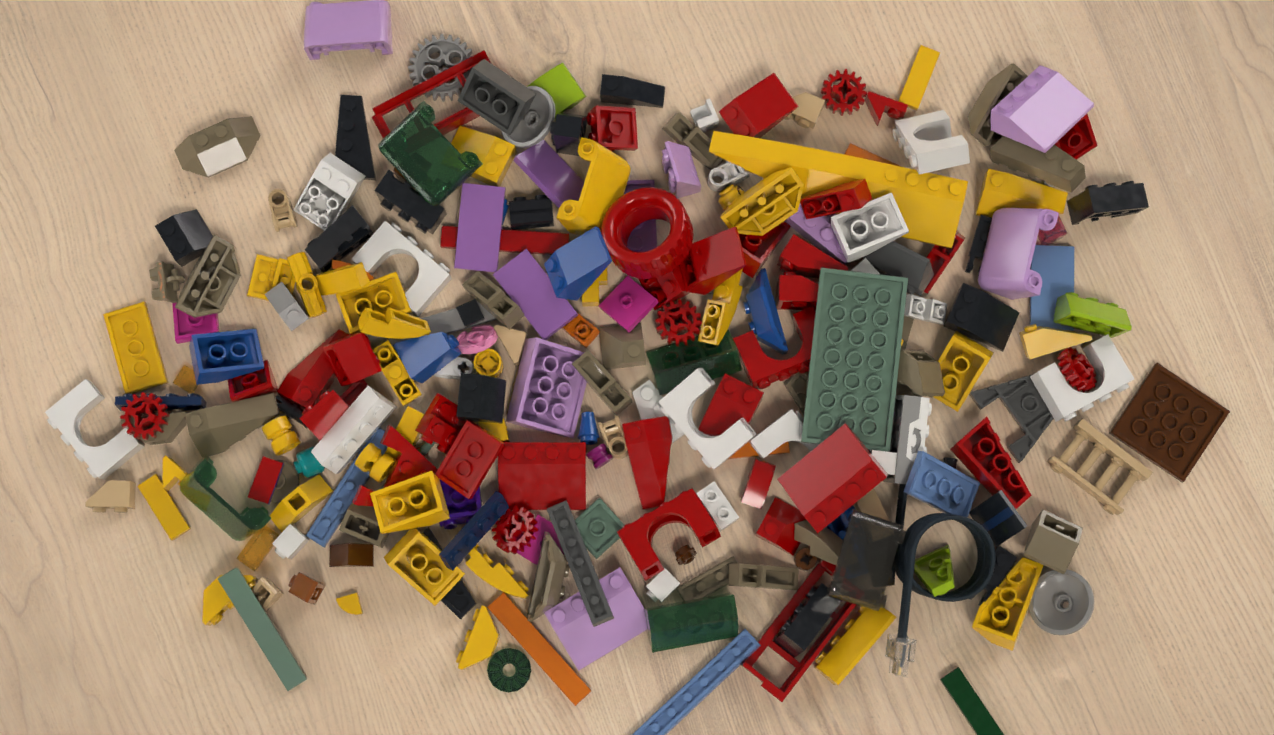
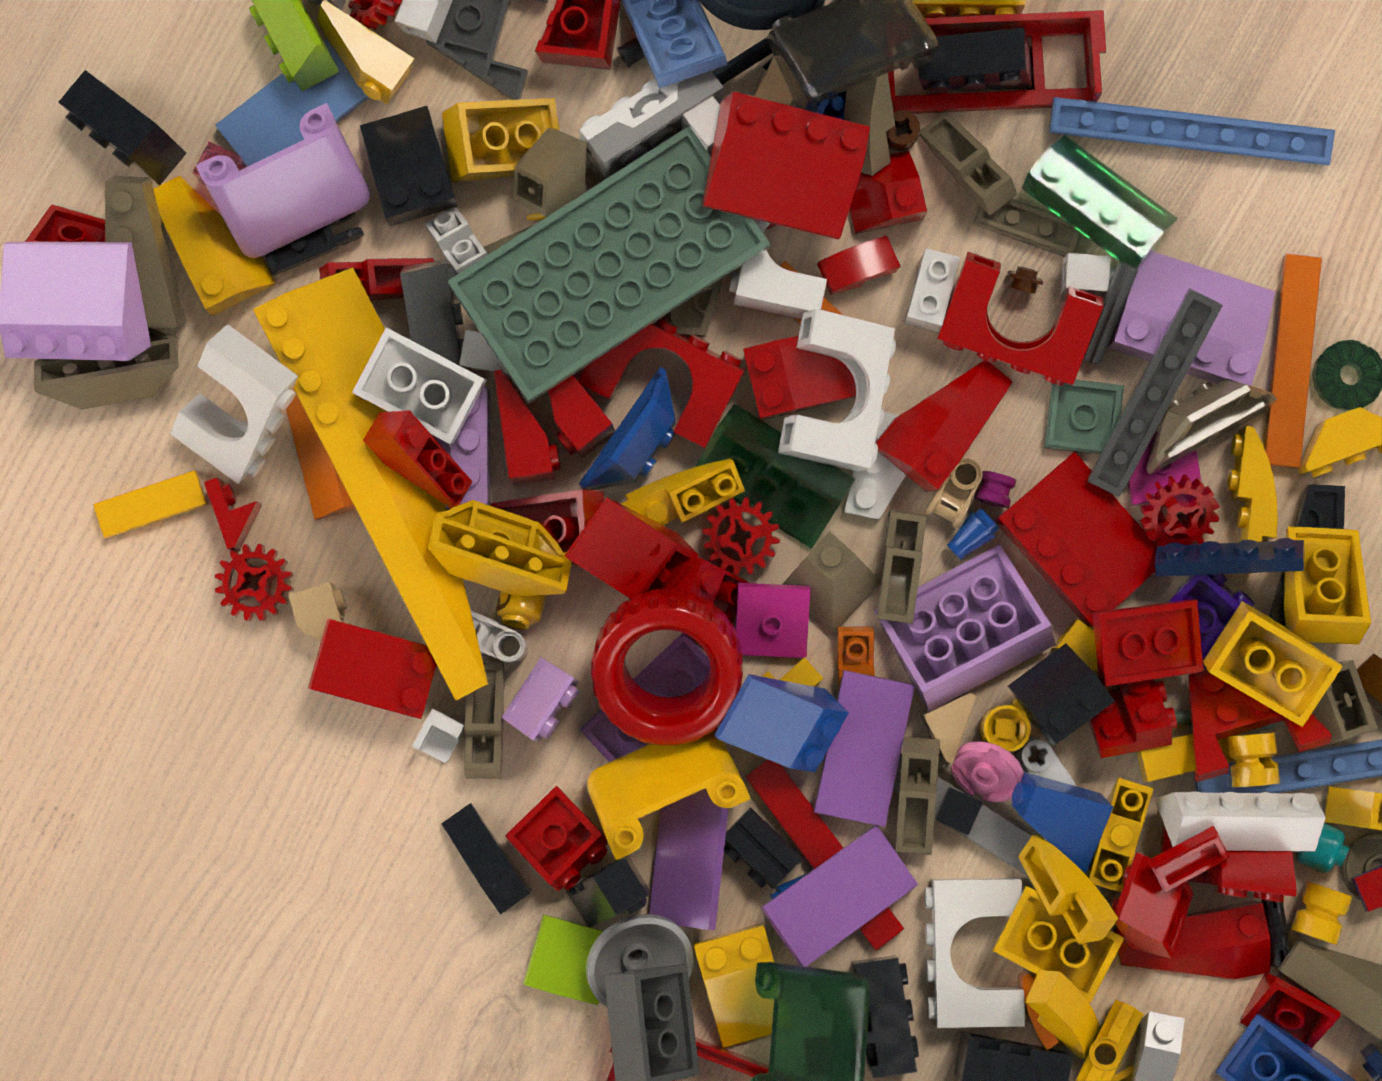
camera: 135 degrees left, 5 degrees up
(358, 387) = (1189, 859): none -> red tile
(635, 579) = (1112, 309): none -> dark grey axle

